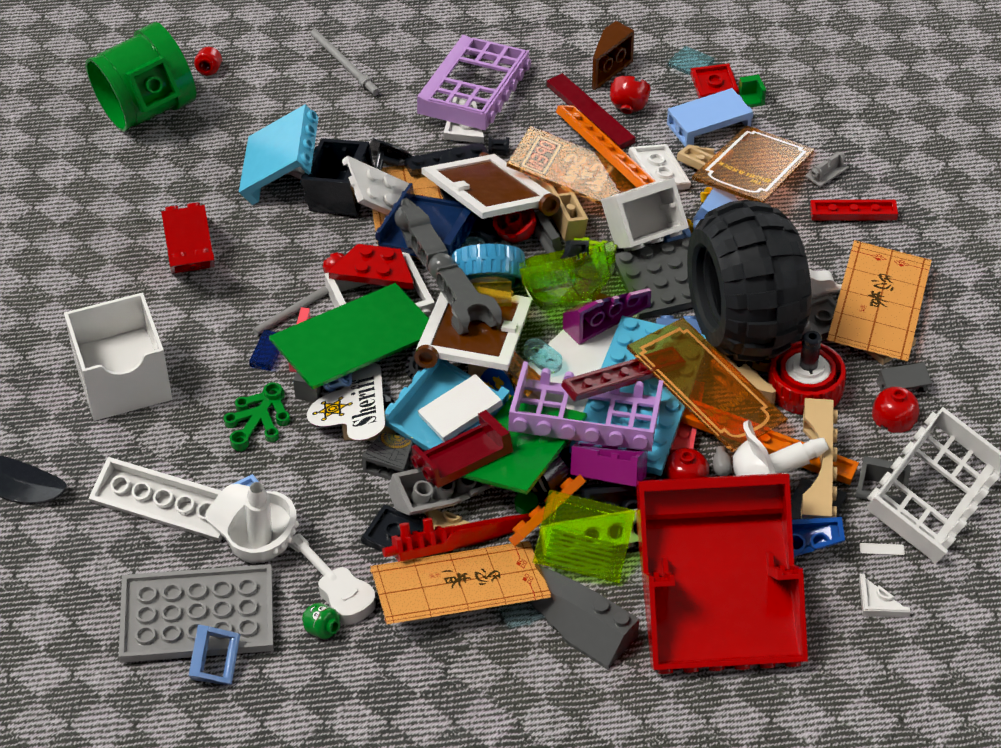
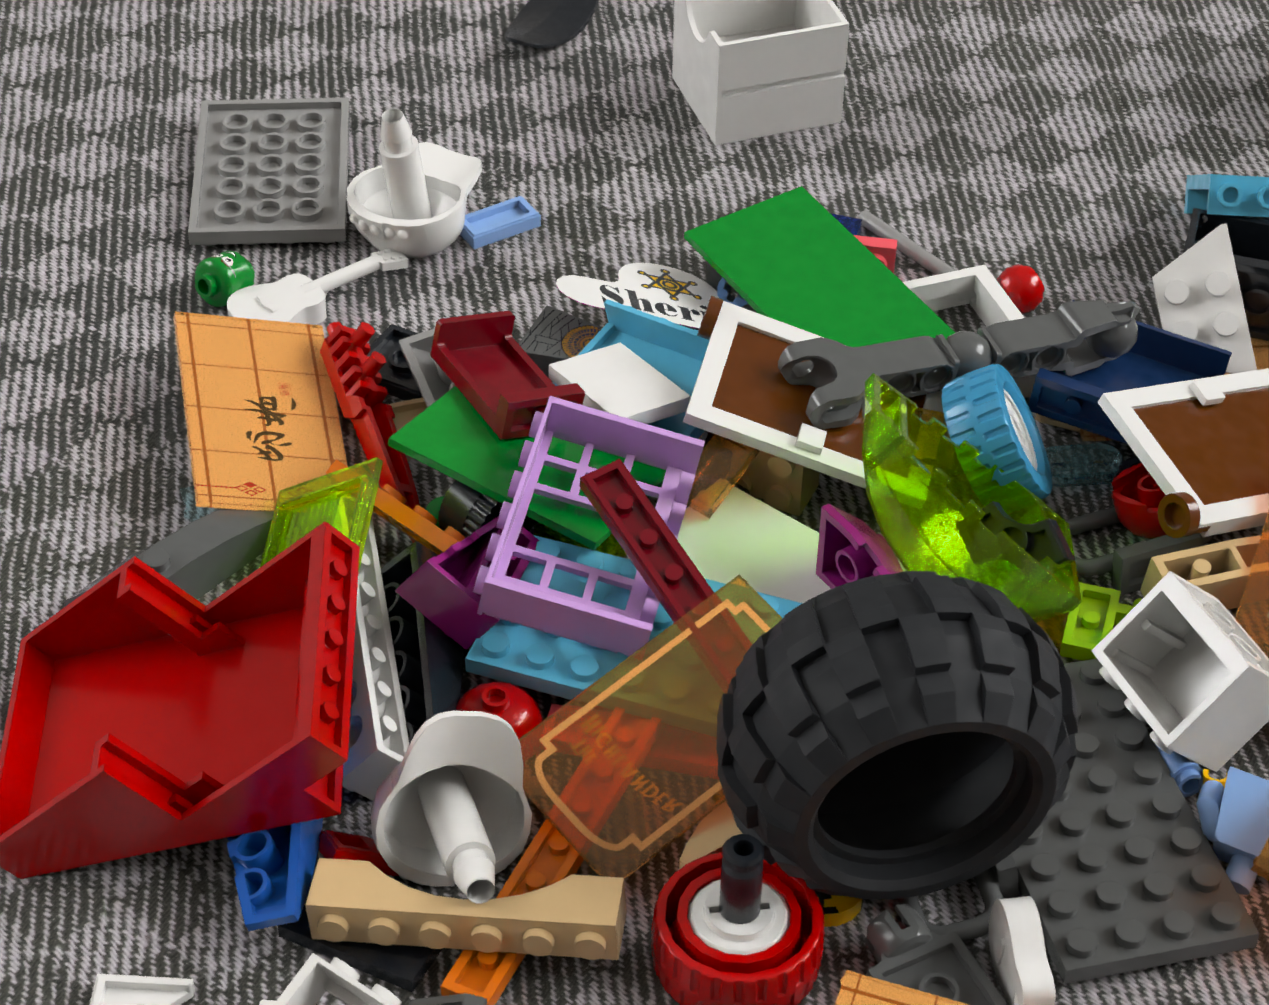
camera: 90 degrees right, 5 degrees down
(155, 497) = (512, 127): white arch -> none
(187, 238) = (1043, 113): red bracket -> none
(200, 651) = (174, 160): medium blue tile -> none
(271, 395) = (613, 203): green plant -> none
(373, 266) = (1001, 296): red wing -> none
(542, 355) = (769, 510): clear light blue plate -> none

